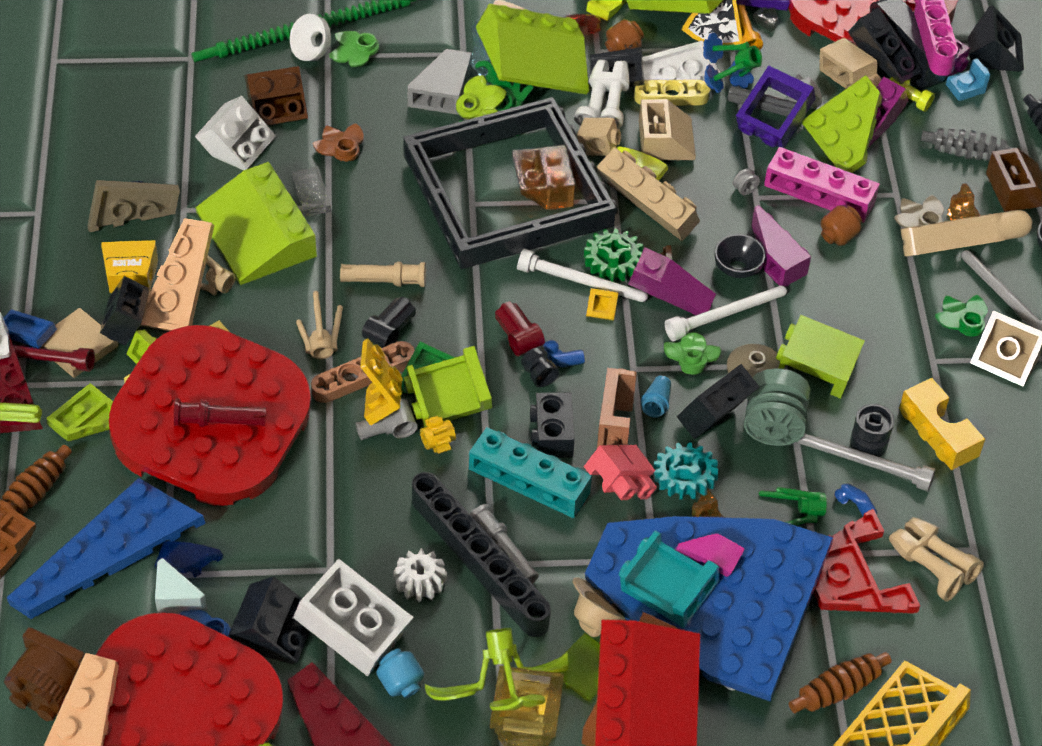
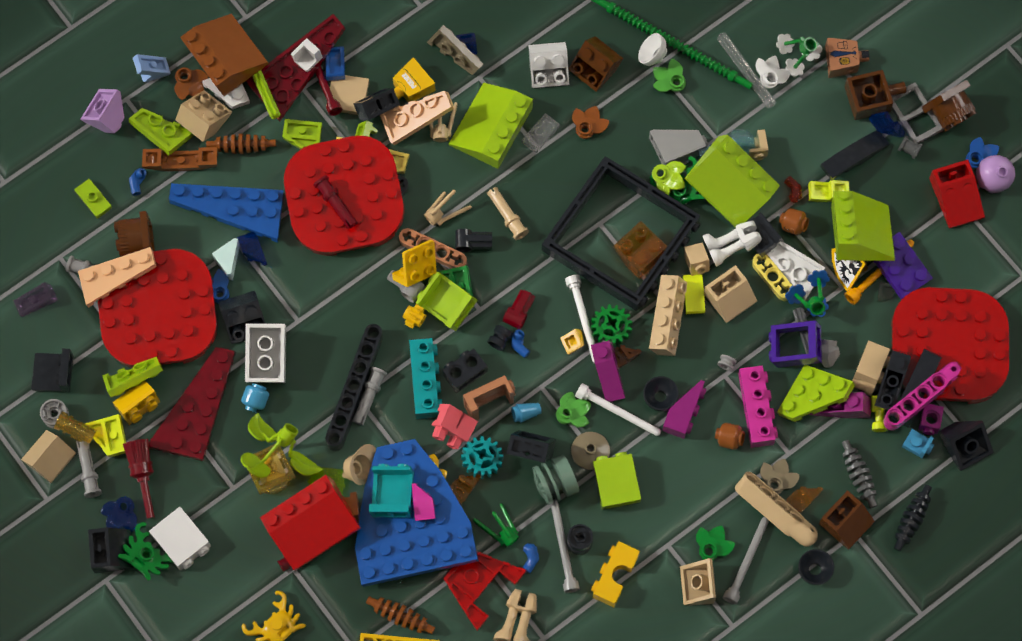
camera: 60 degrees right, 20 degrees up
(420, 575) = (325, 362): white gear -> none

